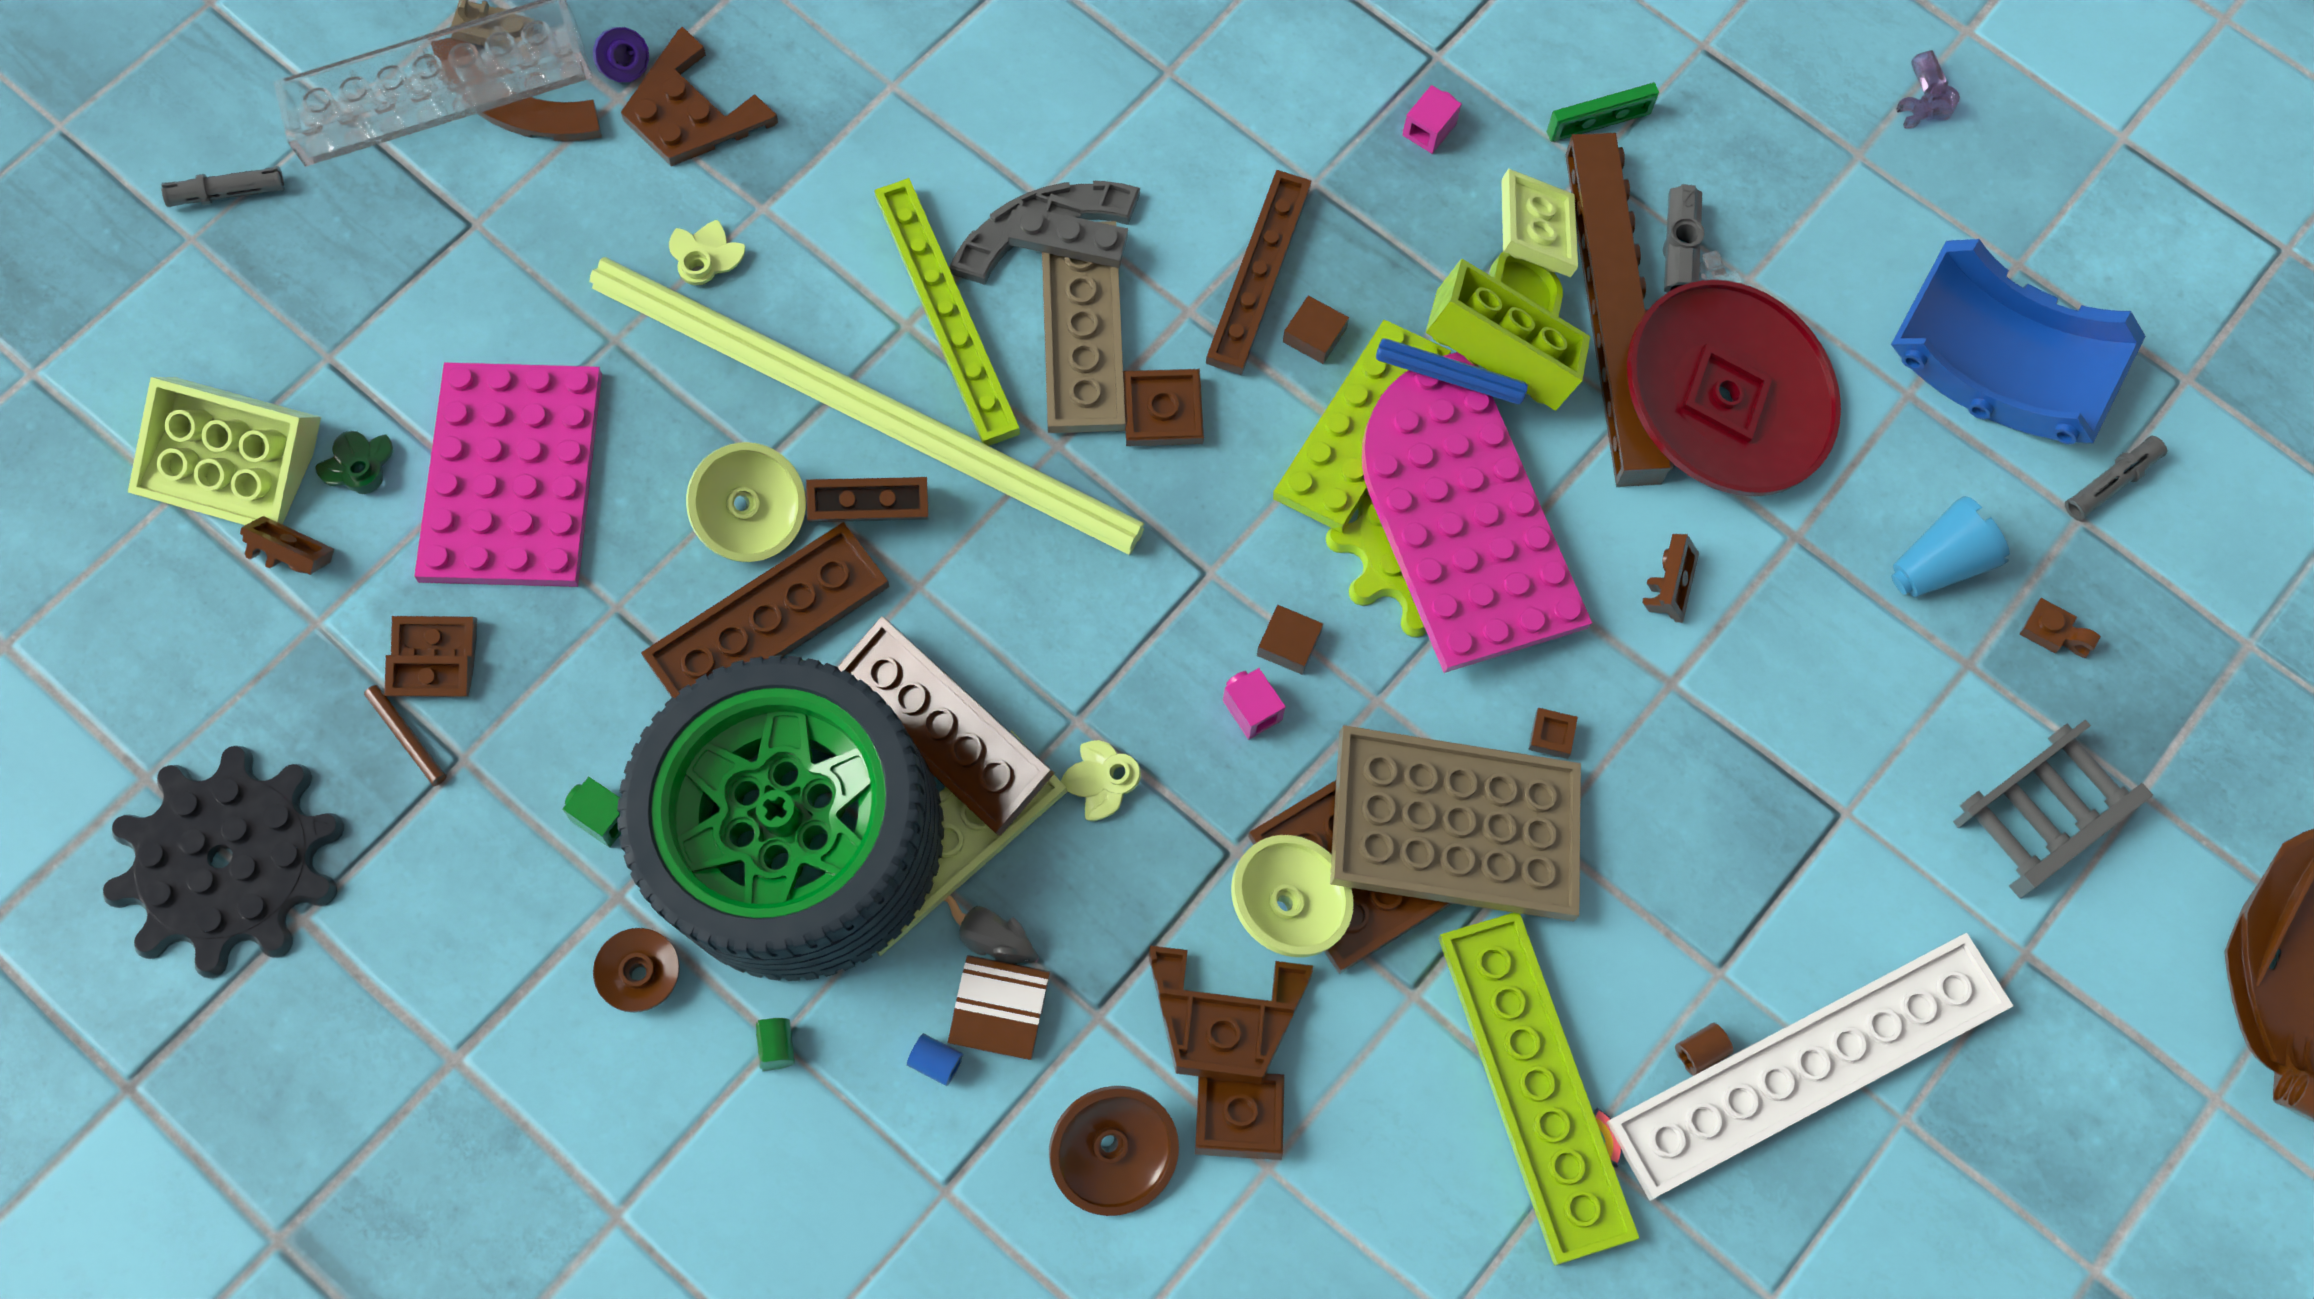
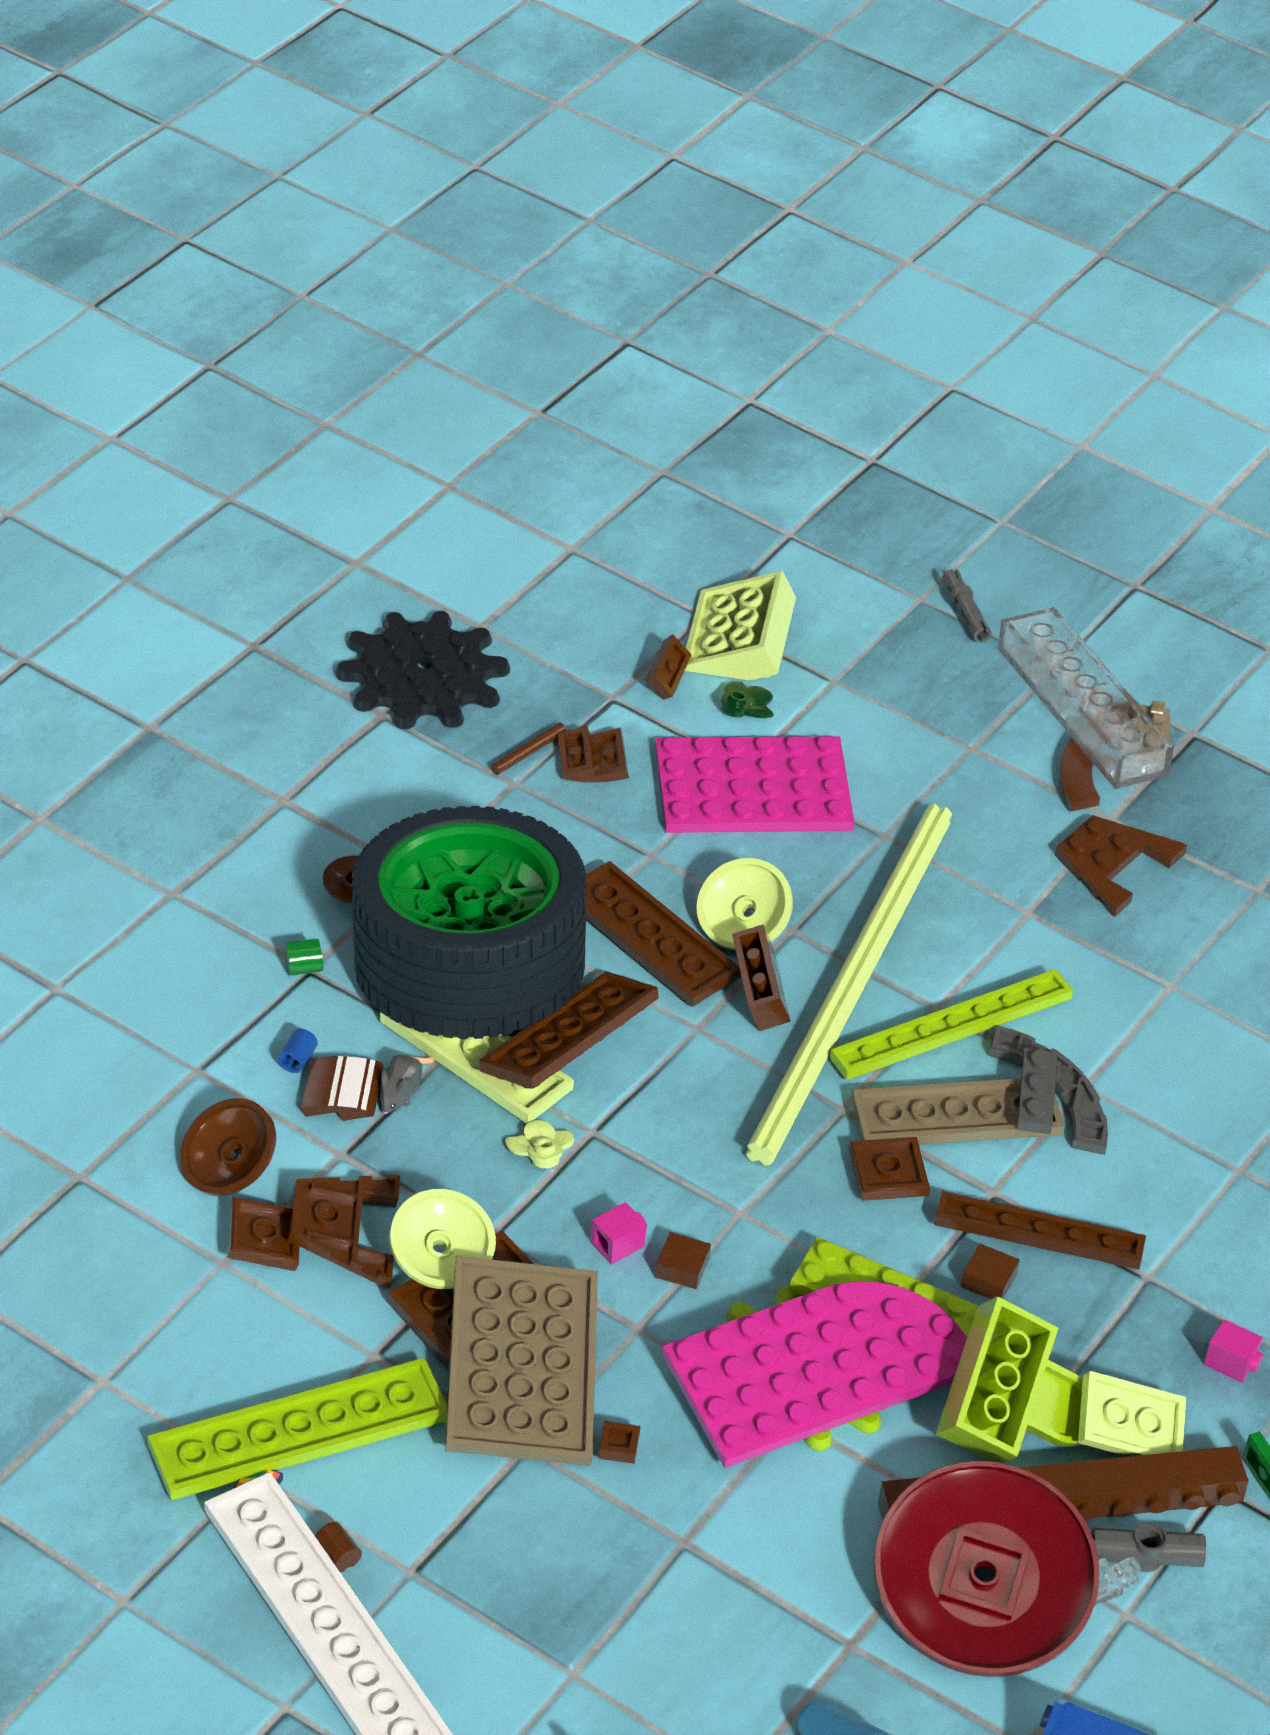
camera: 85 degrees right, 25 degrees down
(621, 54) = (1145, 807): dark purple plate -> none
(705, 249) = (974, 876): yellowish green plate -> none
(1451, 371) = (948, 1337): blue axle -> none
(1679, 566) = (785, 1534): reddish brown plate -> none

